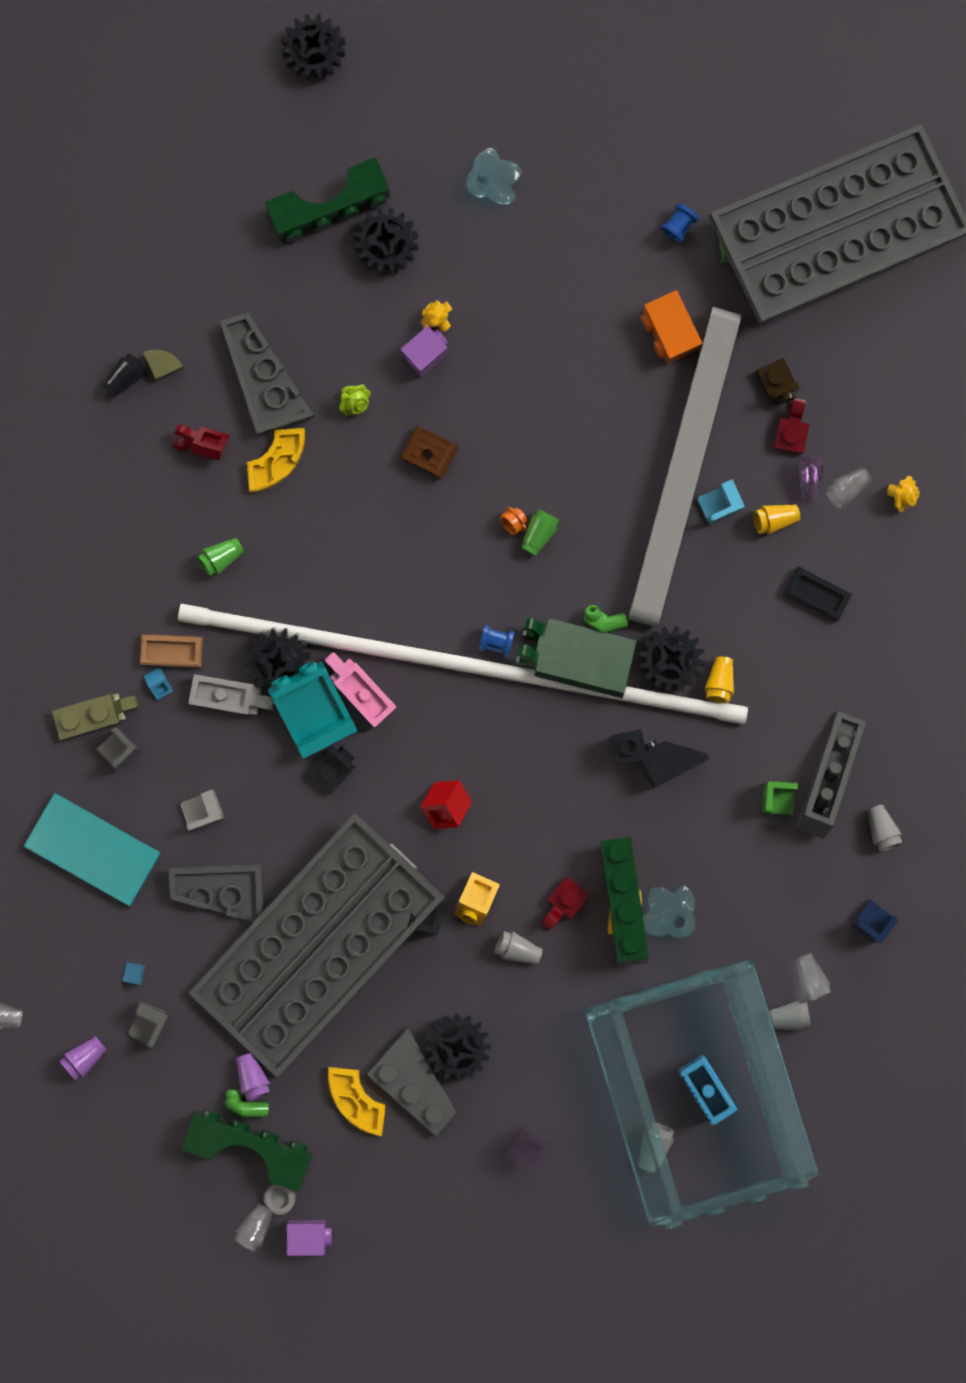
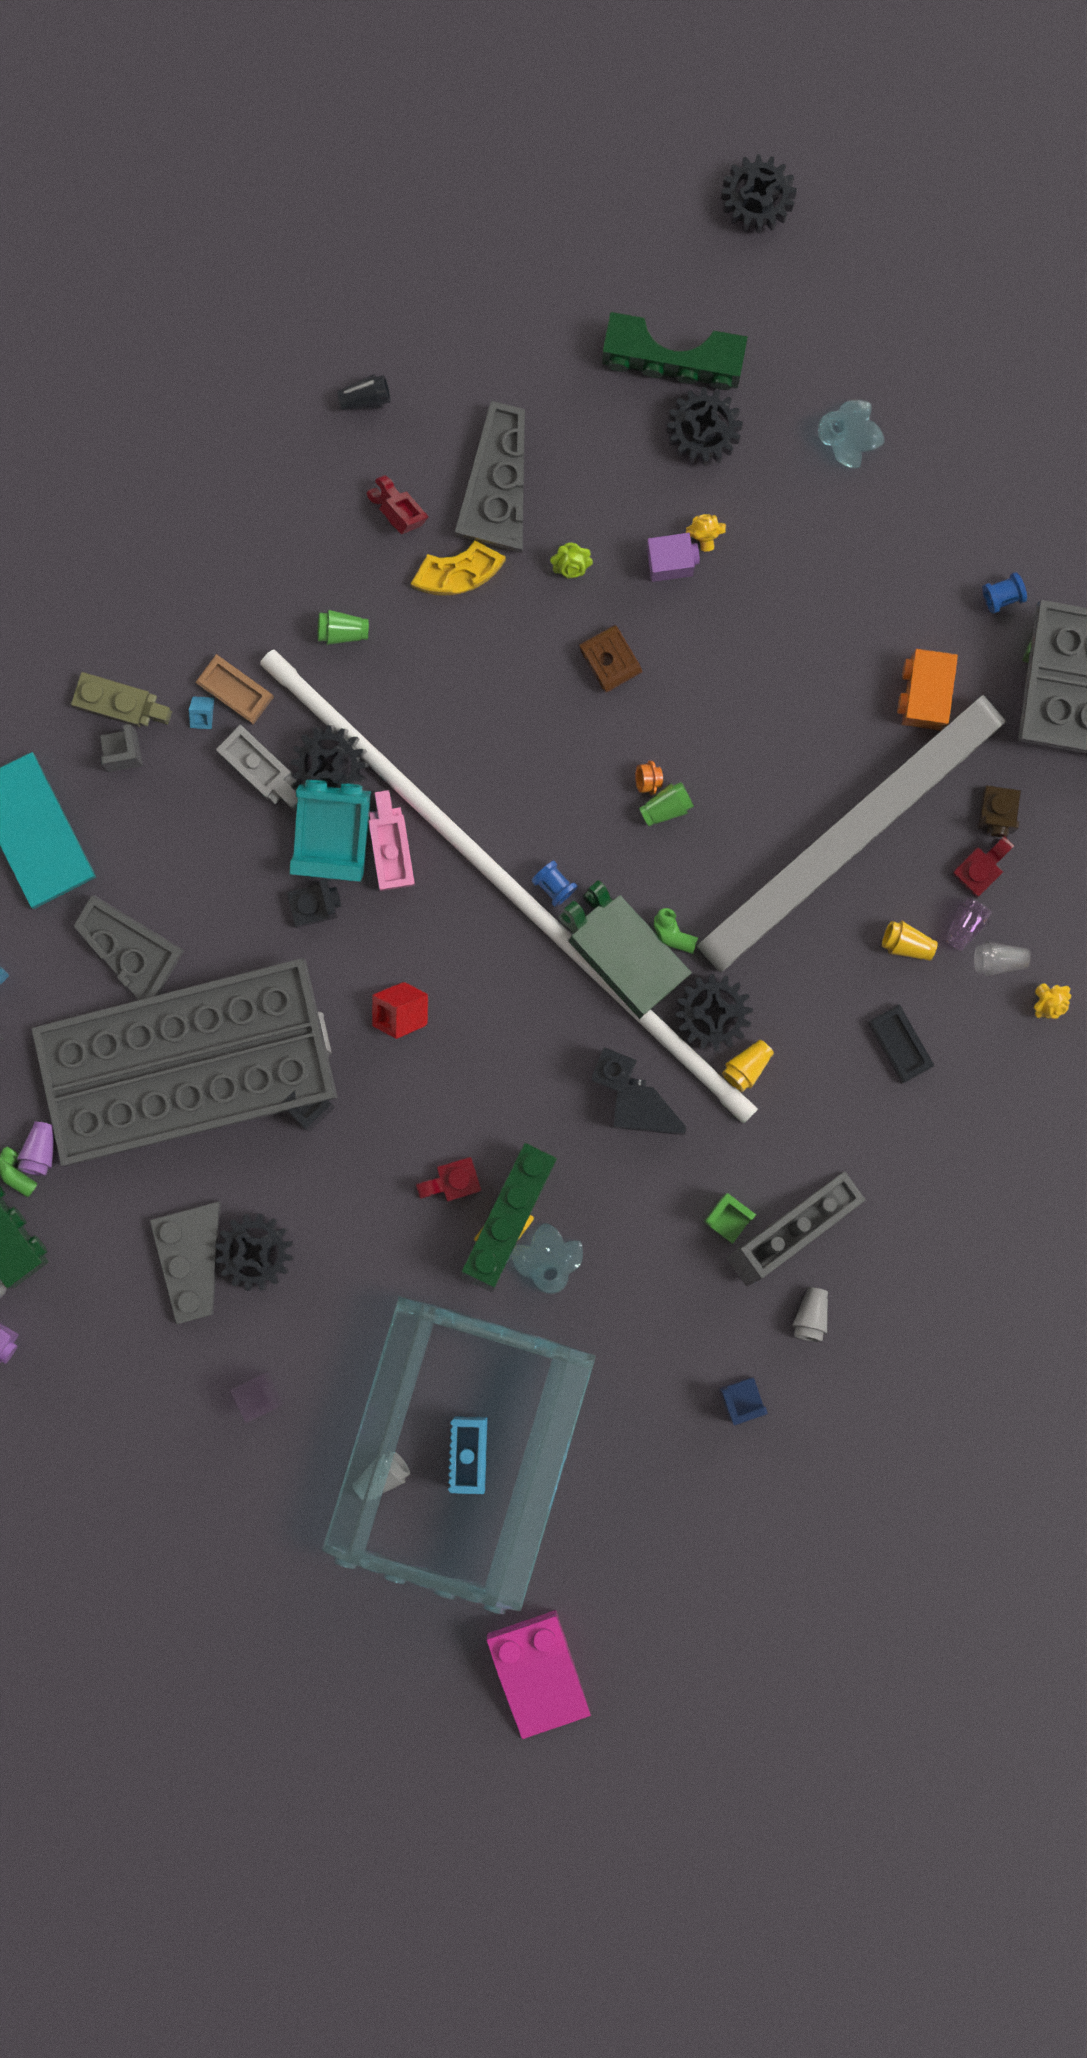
camera: 40 degrees right, 0 degrees up
(162, 363) = (409, 407): olive tile -> none
(202, 811) = (162, 862): light grey panel -> none
(354, 1102) = (120, 1238): yellow tile -> none
(476, 899) = (367, 1121): yellow bracket -> none
(516, 948) = (375, 1195): light grey cone -> none
(721, 503) = (864, 893): medium azure panel -> none
(791, 1016) = (598, 1438): light grey cone -> none
(812, 978) = (644, 1415): clear cone -> none
(858, 1211) = (538, 1674): none -> dark pink slope

